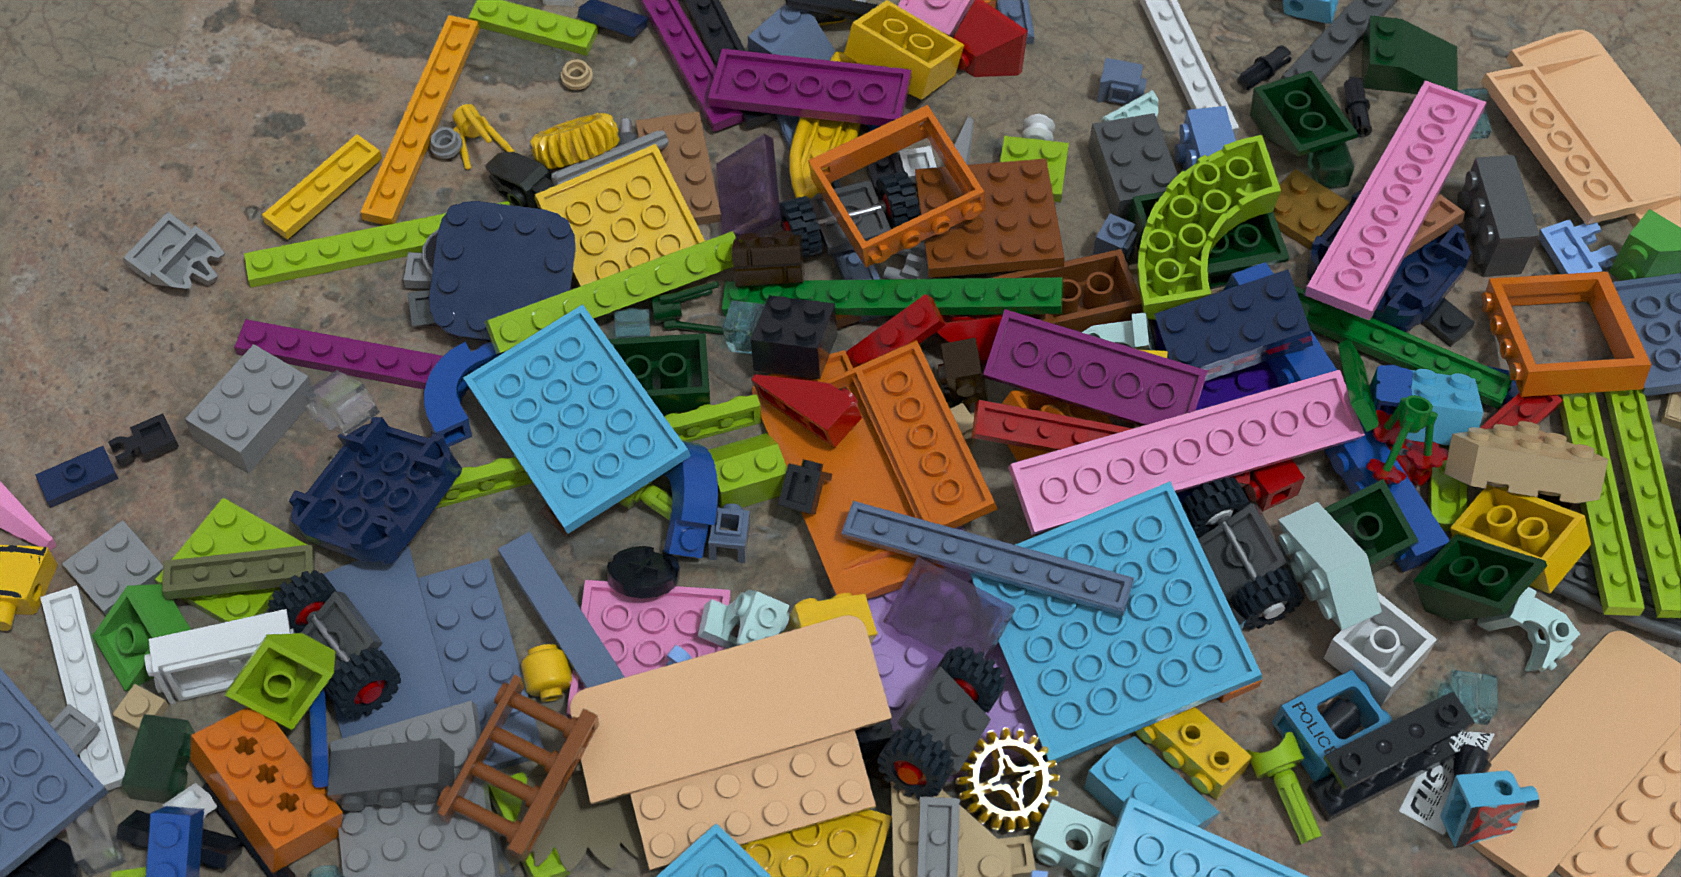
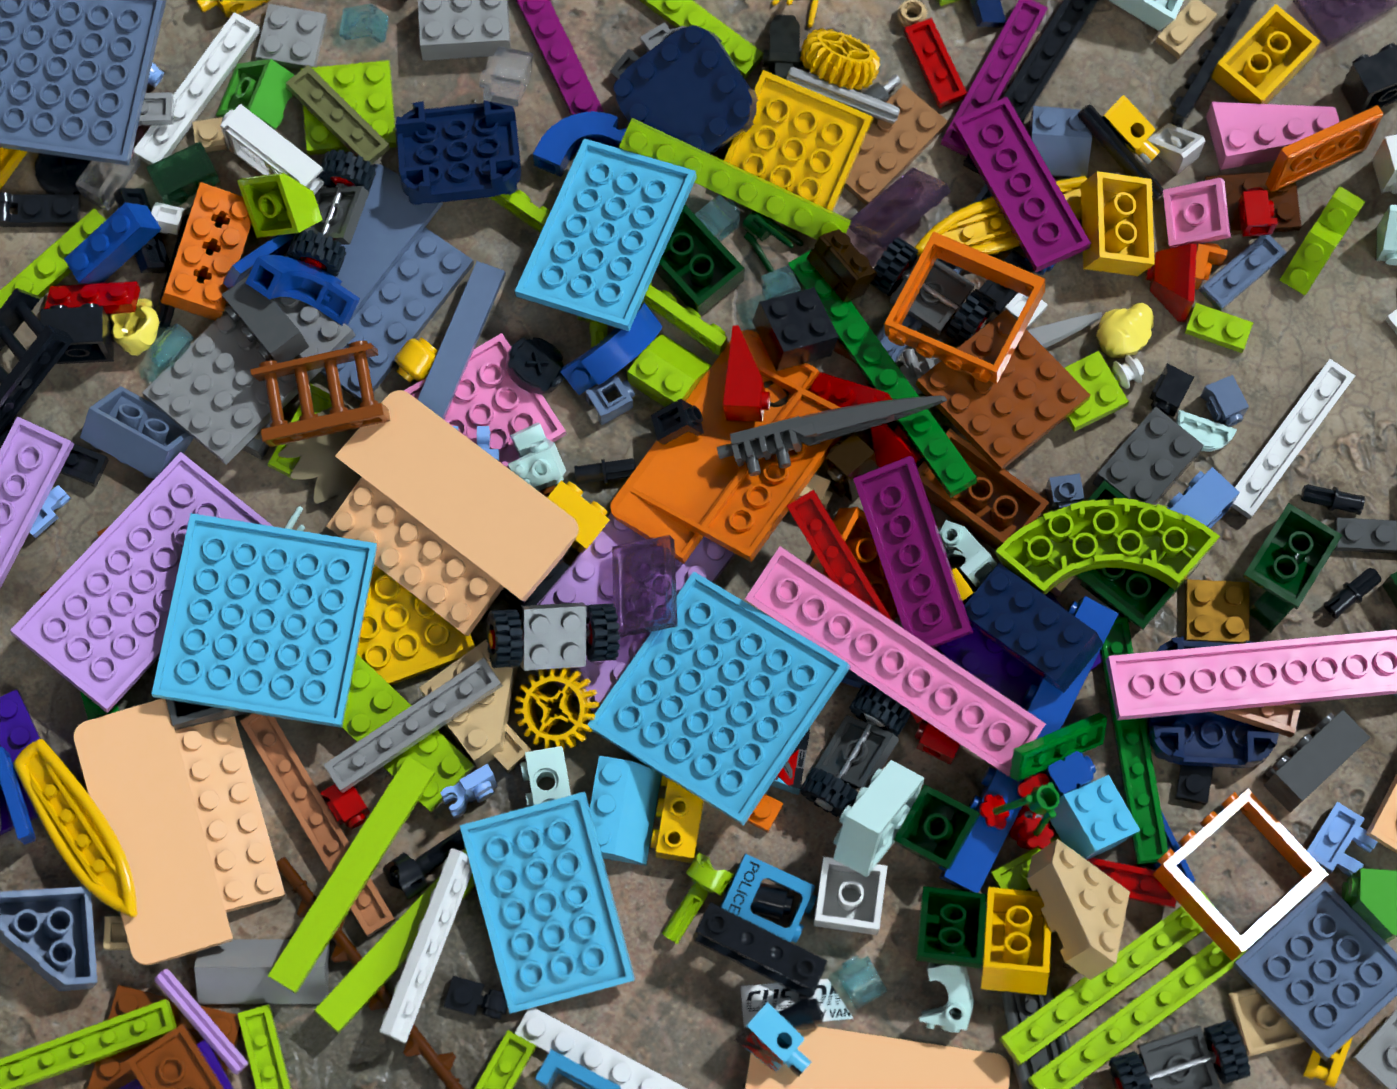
camera: 55 degrees right, 15 degrees up
(163, 494) = (364, 22): none -> clear light blue bracket
(381, 712) = (288, 277): none -> blue arch
(637, 86) = (935, 62): none -> red plate
(797, 583) = (604, 471): none -> black axle
(906, 382) = (814, 428): none -> dark grey piece
(988, 558) = (703, 582): sand blue tile -> none
(1000, 109) = (1125, 330): none -> light yellow hair
(1051, 50) = (1218, 327): none -> lime plate
(1078, 111) = (1170, 389): none -> black window

